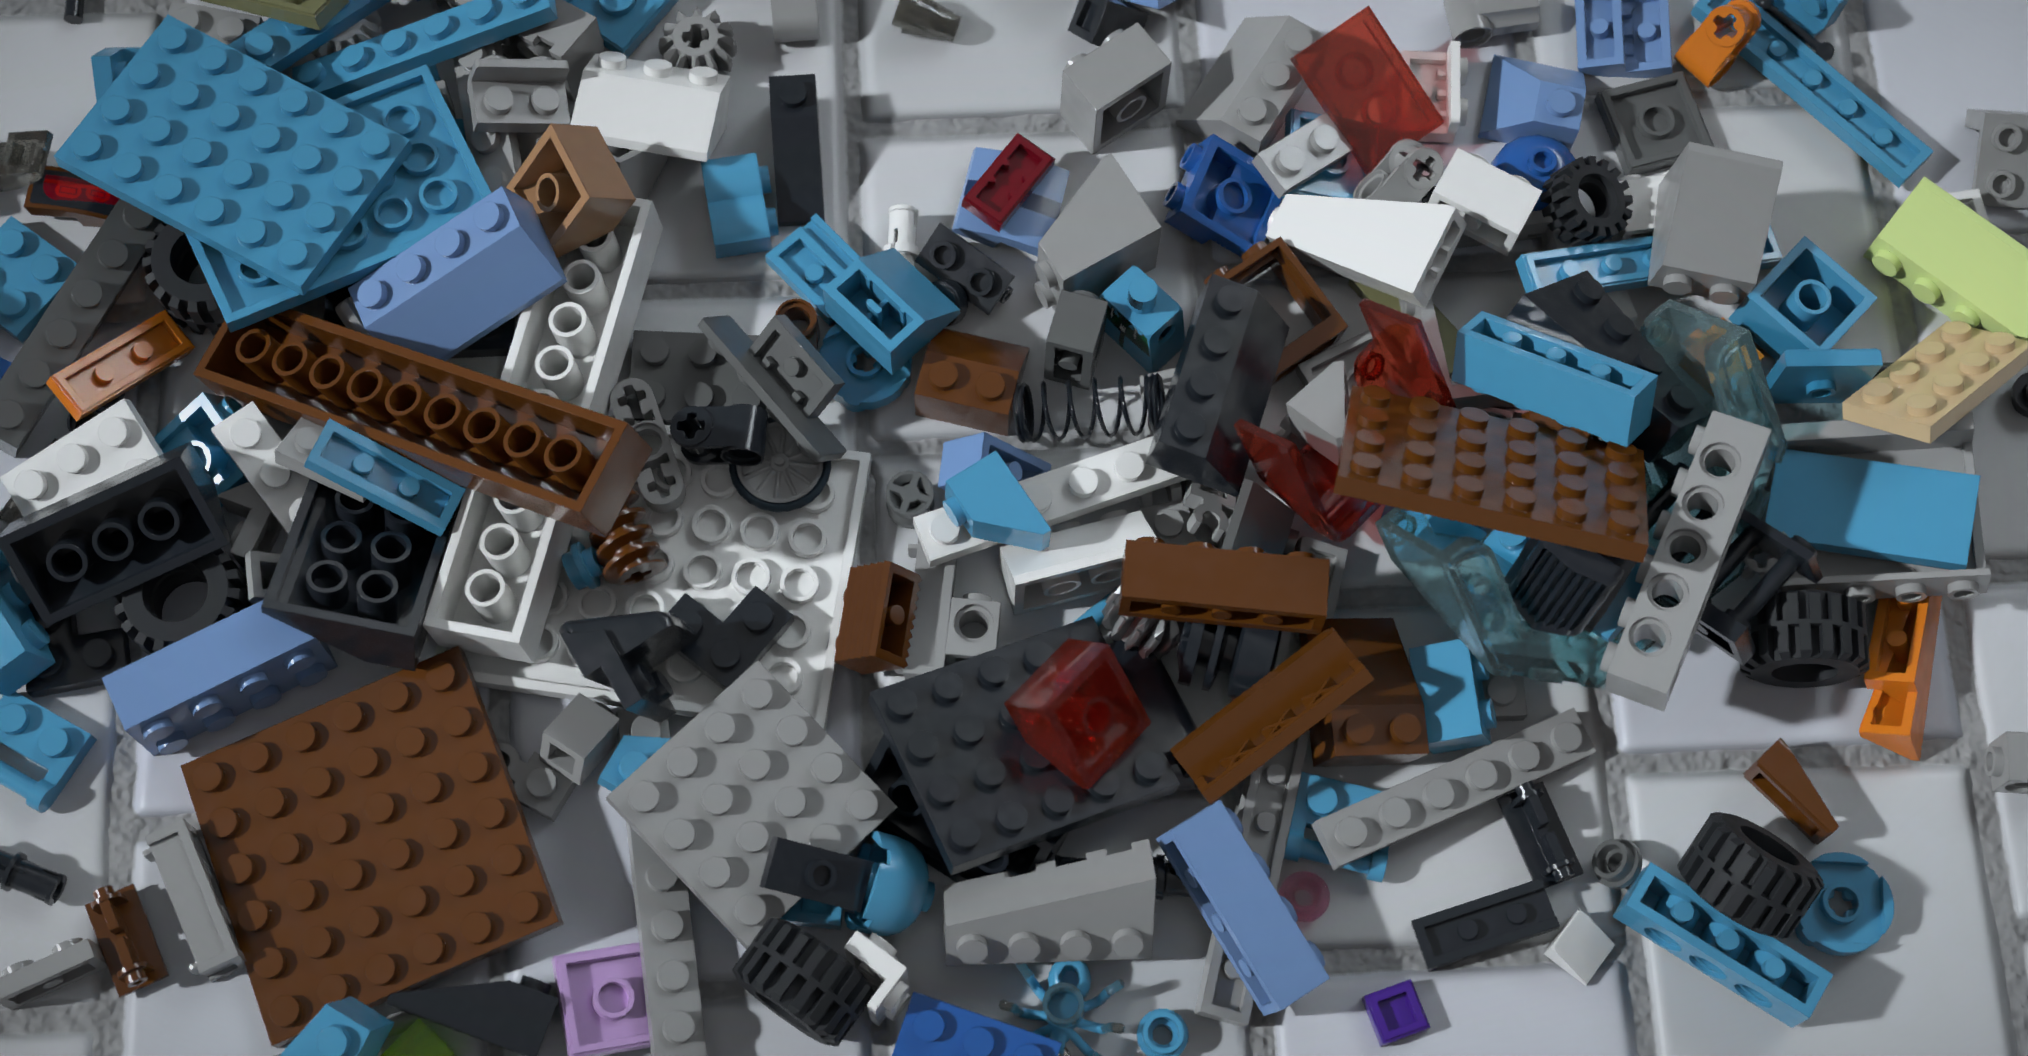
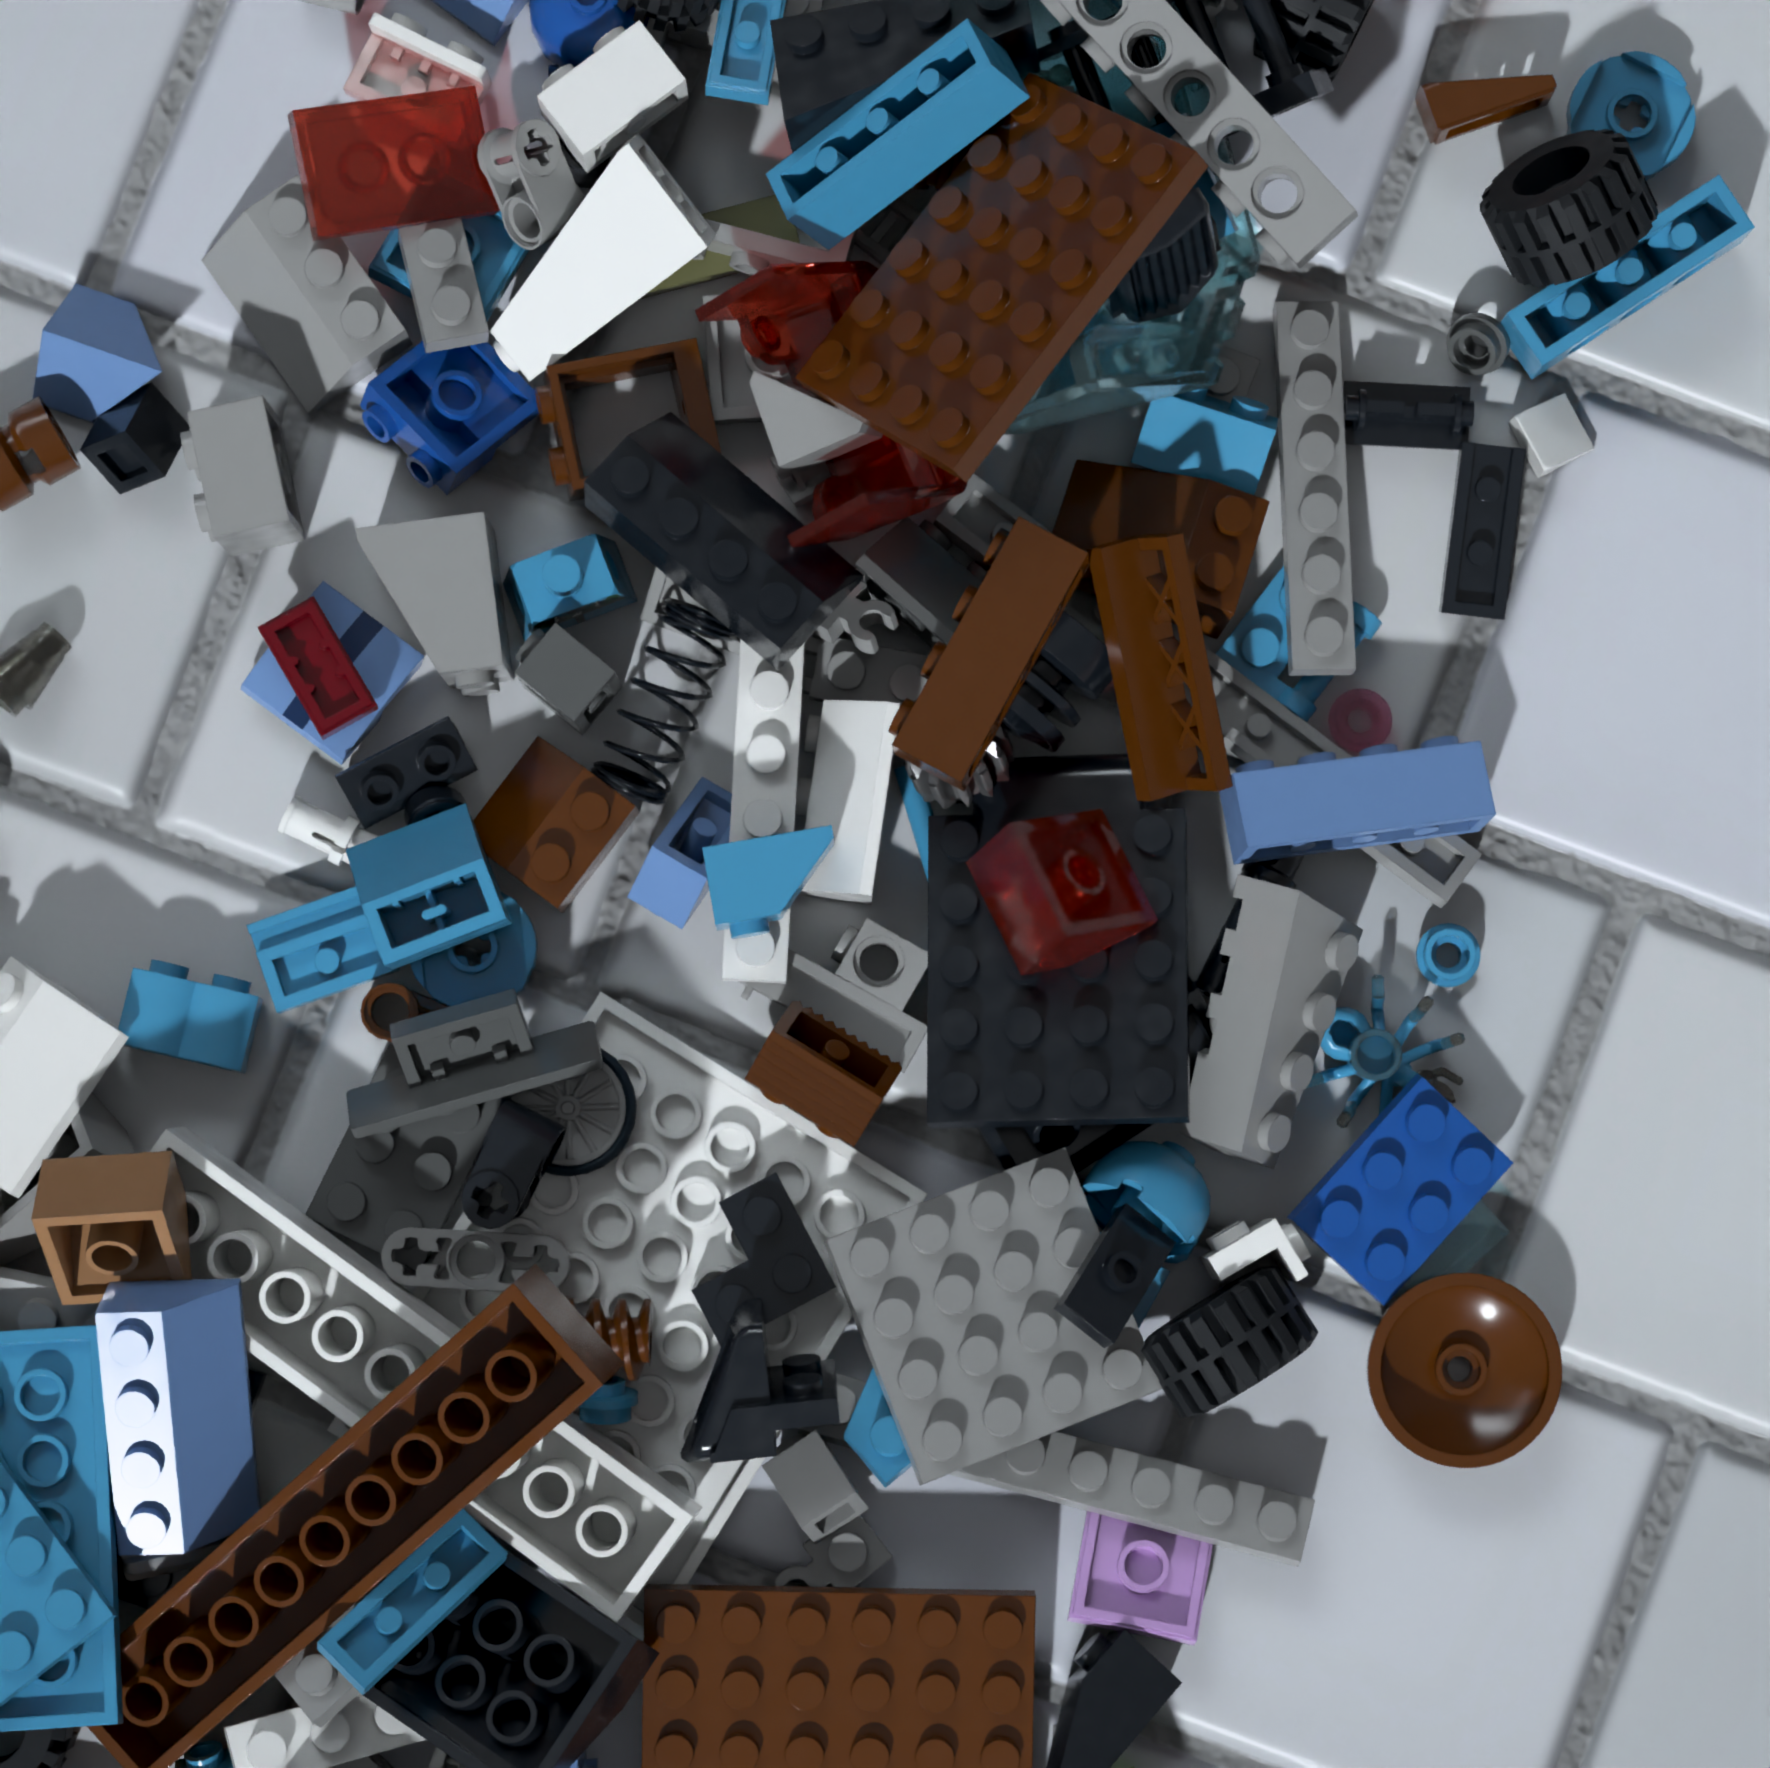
camera: 65 degrees left, 15 degrees up
(796, 148) = (146, 912): black slope -> none
(910, 488) = (670, 961): dark grey wheel -> none
(1395, 1013) = (1534, 679): dark purple tile -> none

